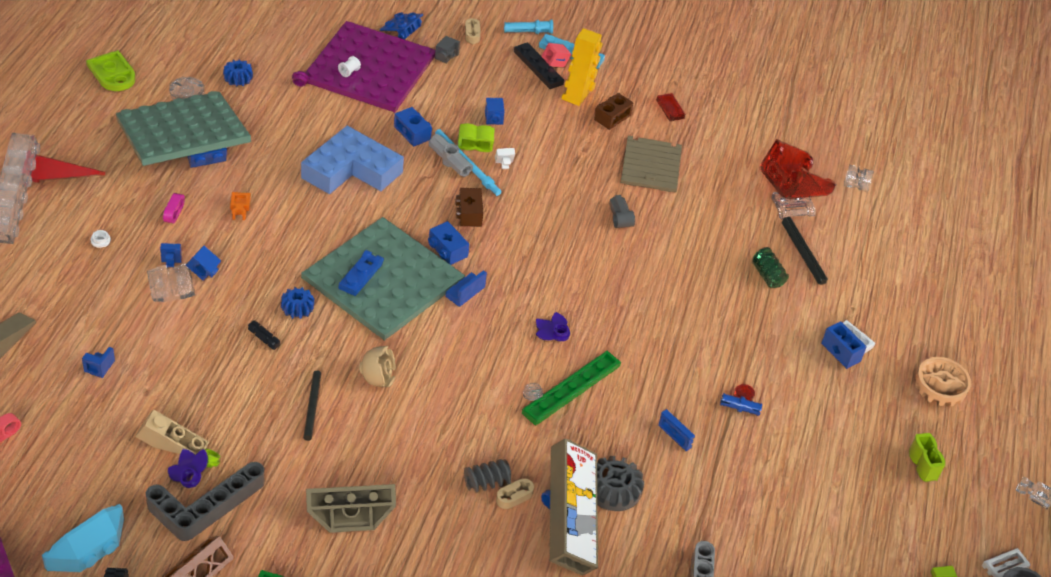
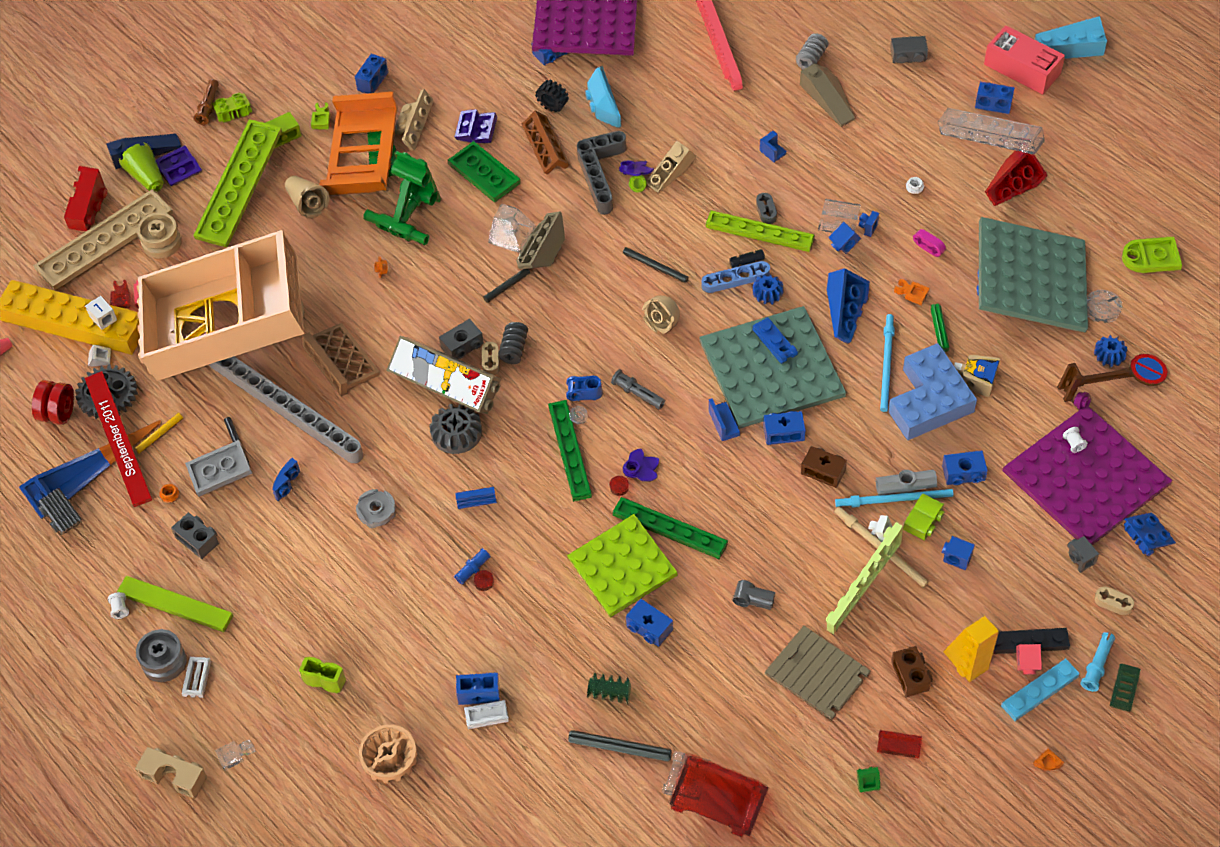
camera: 130 degrees right, 10 degrees up
(188, 341) = (762, 209): none -> dark grey beam
(220, 339) = (760, 231): none -> lime tile
(270, 179) = (939, 326): none -> green axle
(274, 246) = (846, 297): none -> blue wedge
(289, 75) = (1143, 367): none -> piece
(295, 333) = (734, 274): none -> medium blue beam
(296, 209) = (889, 333): none -> medium azure bar
(308, 138) = (979, 373): none -> torso
(339, 552) = (510, 228): none -> clear slope
(420, 525) = (501, 288): none -> pearl dark grey bar
(474, 364) = (631, 386): none -> dark grey pin
(502, 397) = (584, 388): none -> blue piece
(502, 526) = (452, 340): none -> dark grey brick
(509, 177) = (852, 522): none -> tan bar
(531, 139) = (885, 551): none -> yellowish green wing
(535, 12) = (1126, 674): none -> clear green slope
(582, 337) = (619, 485): none -> clear red tile
(597, 290) = (672, 528): none -> green tile
(621, 37) = (1048, 761): none -> orange tile
(658, 303) = (622, 565): none -> lime plate
(696, 265) = (649, 623): none -> blue brick
(712, 110) = (868, 779): none -> green tile
(744, 517) = (375, 518): none -> light grey plate

